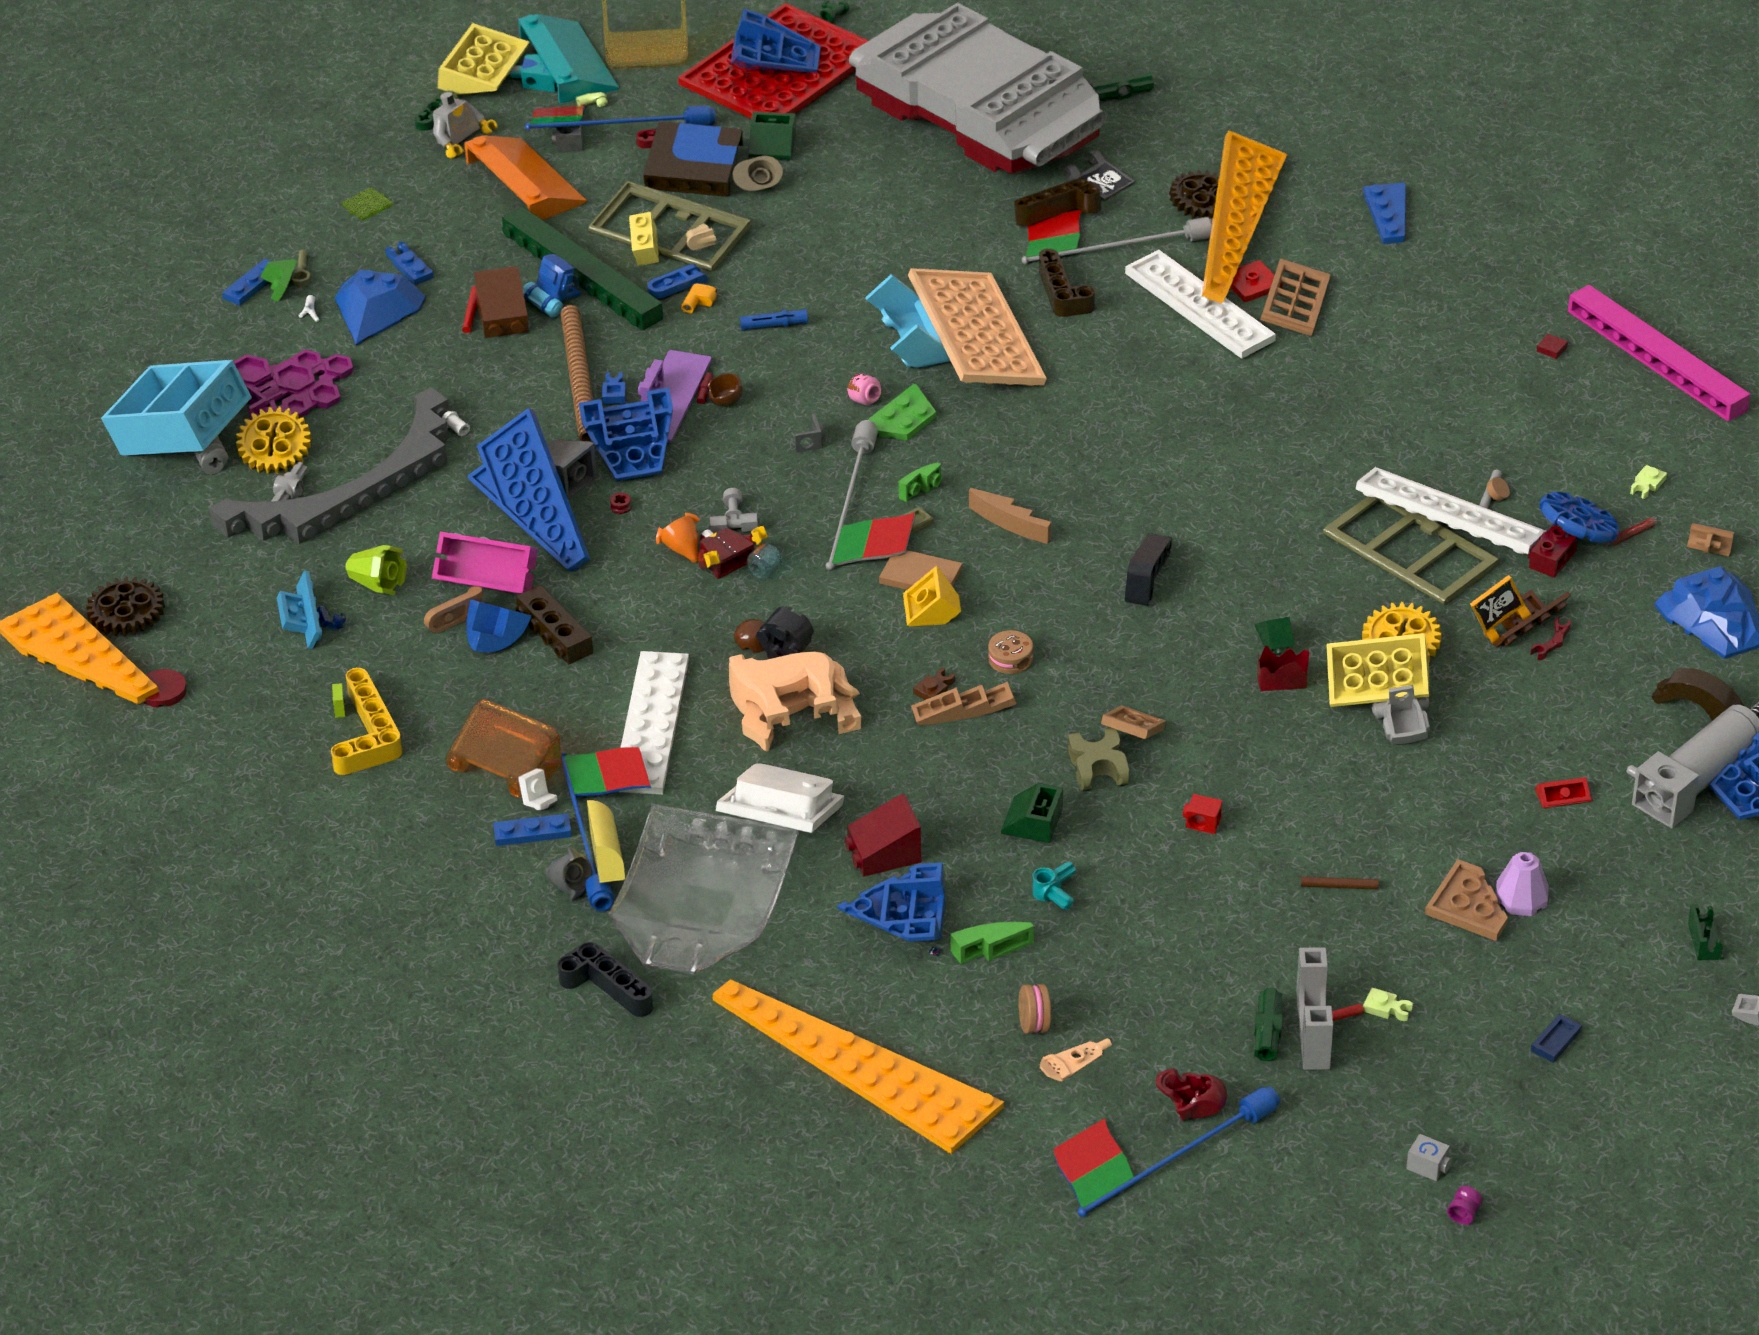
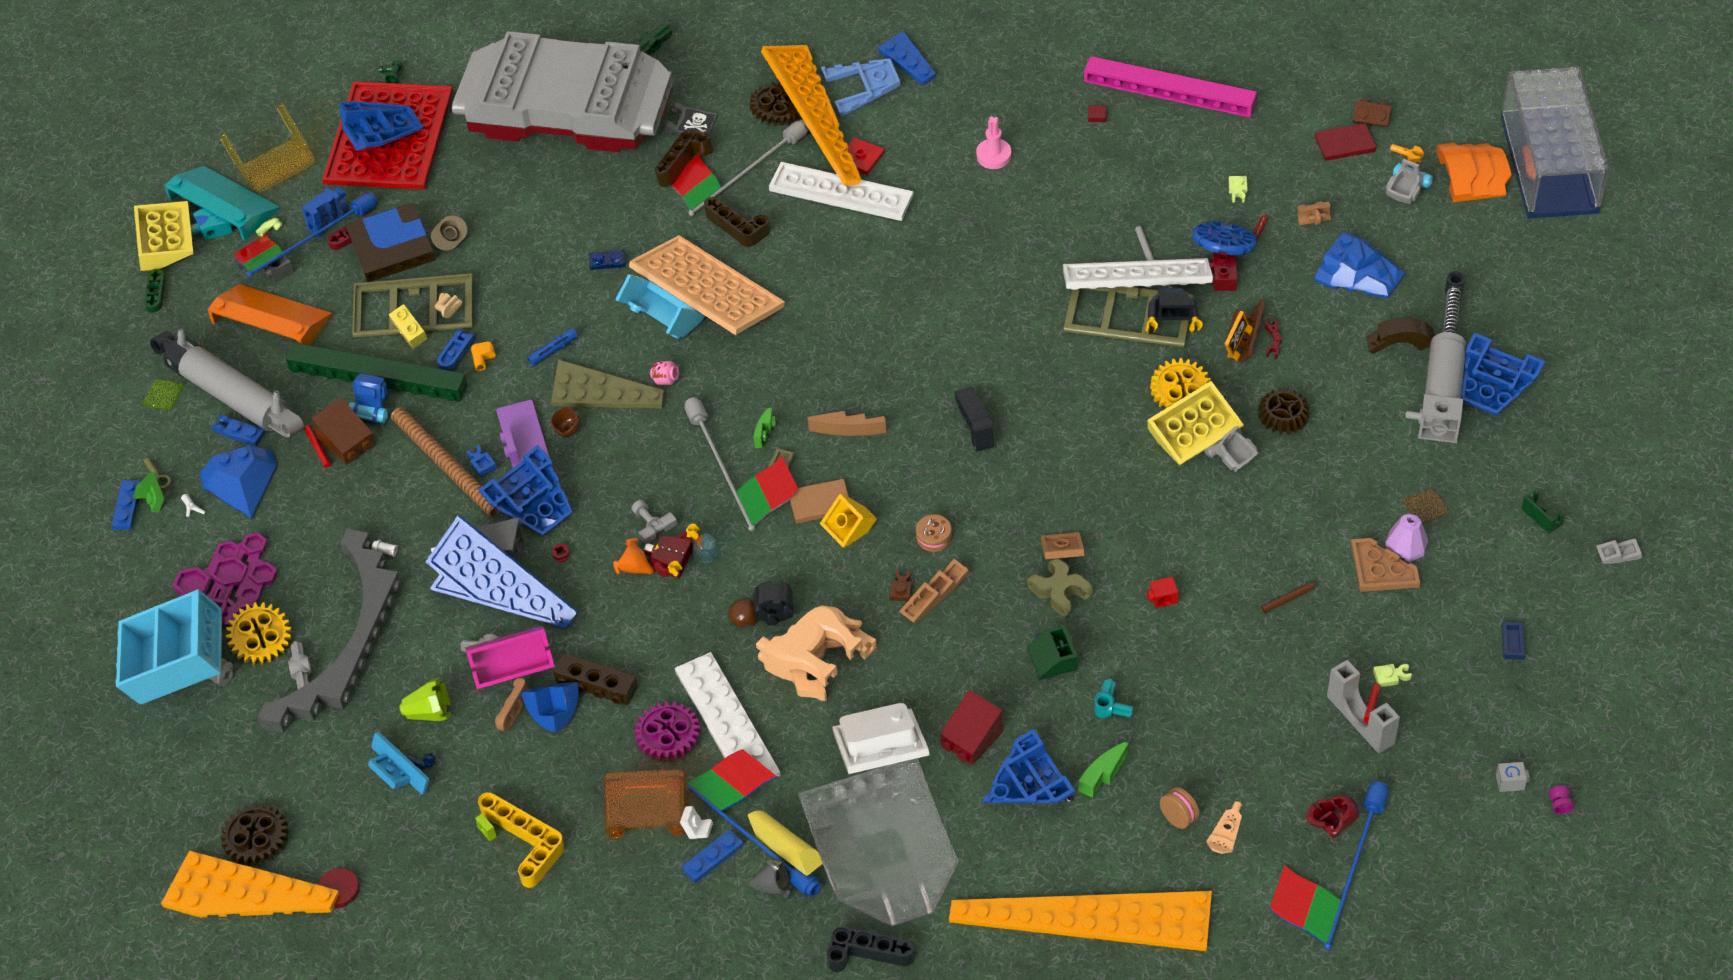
camera: 30 degrees left, 10 degrees up
(428, 214) = (226, 383): none -> light grey piece
(455, 122) = (183, 294): light grey torso -> none
(566, 705) = (655, 742): none -> magenta gear
(654, 101) = (324, 209): none -> blue hips
(704, 389) = (546, 427): dark red piece -> none
(772, 135) = (432, 196): dark green slope -> none
(783, 374) = (591, 388): none -> olive wing
(816, 434) = (660, 425): dark grey bracket -> none
(897, 265) = (607, 260): none -> clear blue piece
(904, 415) = (706, 379): bright green wing -> none
(1268, 1024) = (1332, 732): dark green piece -> none
(1276, 634) = (1098, 426): dark green slope -> none
(1282, 671) = (1138, 455): dark red piece -> none
(1287, 321) = (908, 178): medium nougat piece -> none
(1332, 216) = (877, 76): none -> medium blue wing
(1401, 334) = (993, 152): none -> bright pink piece
(1456, 552) = (1173, 305): none -> black torso
(1498, 489) = (1151, 241): medium nougat tile -> none
(1511, 710) = (1281, 415): none -> dark brown gear
(1563, 792) = (1372, 452): red slope -> none
(1577, 871) = (1426, 506): none -> clear orange piece

